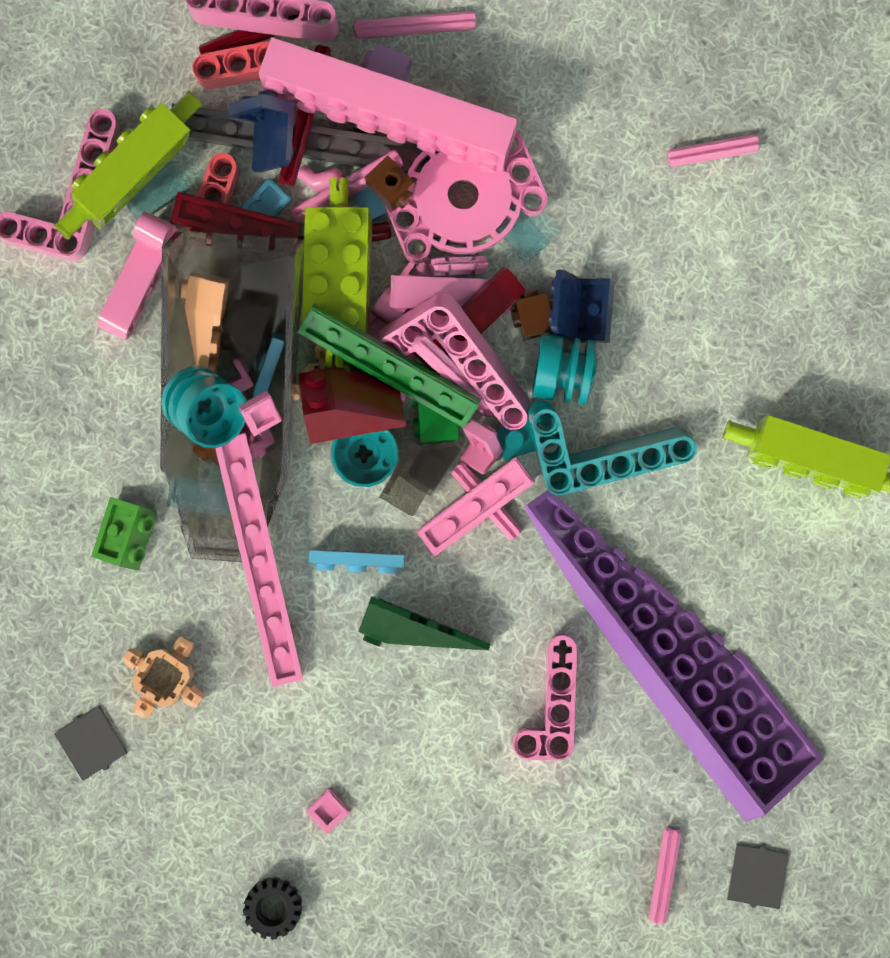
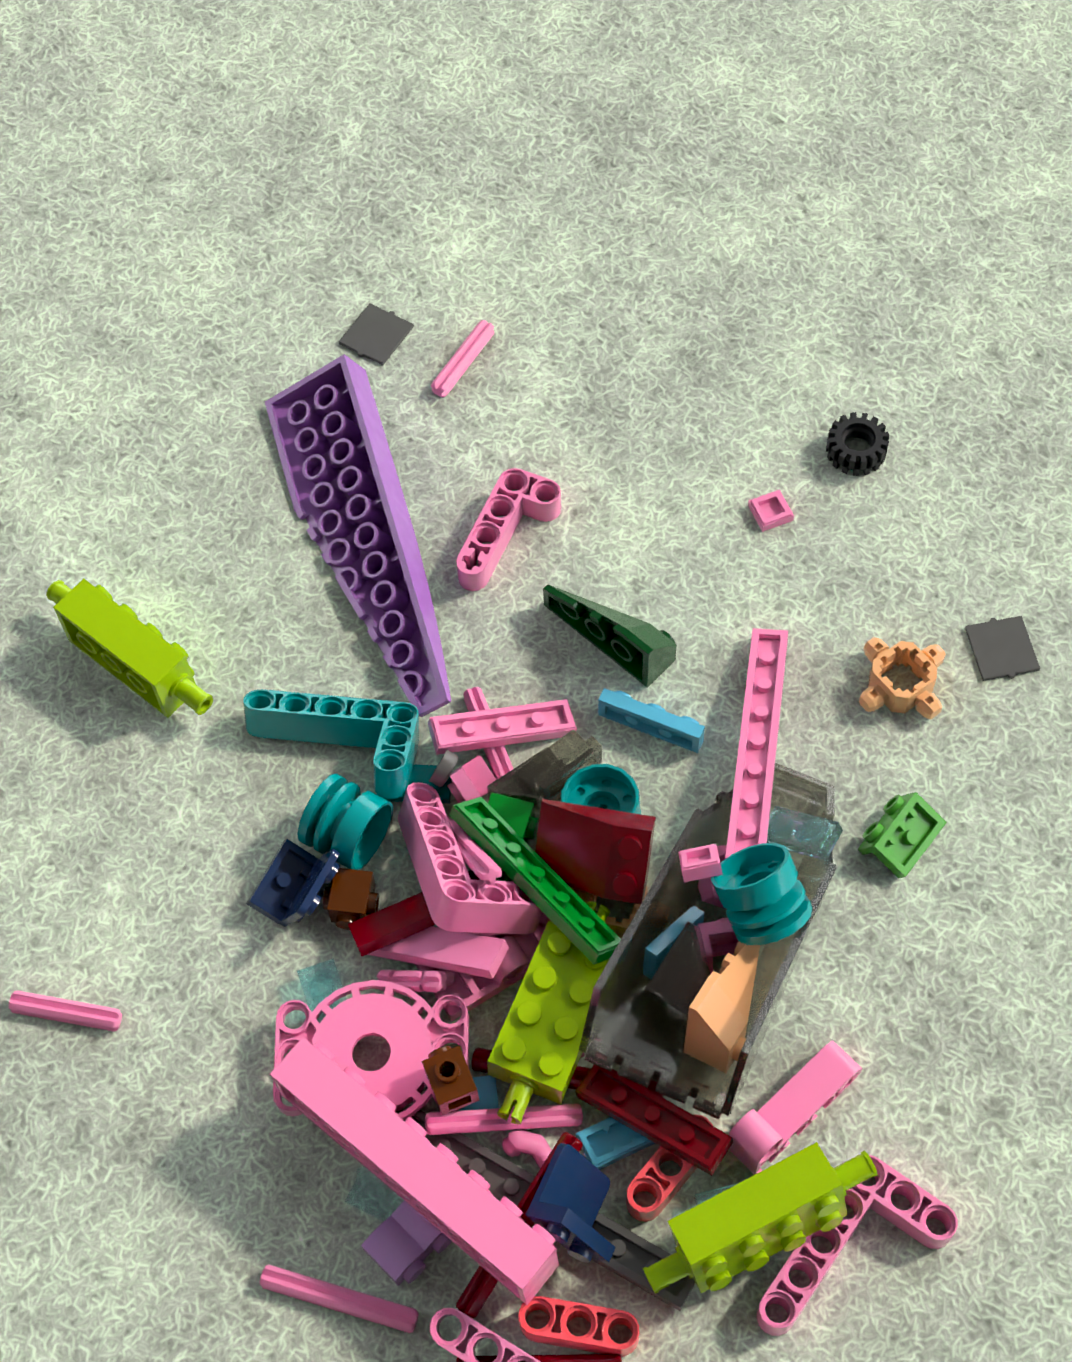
camera: 160 degrees left, 25 degrees down
(505, 444) = (444, 768): none -> dark grey tile

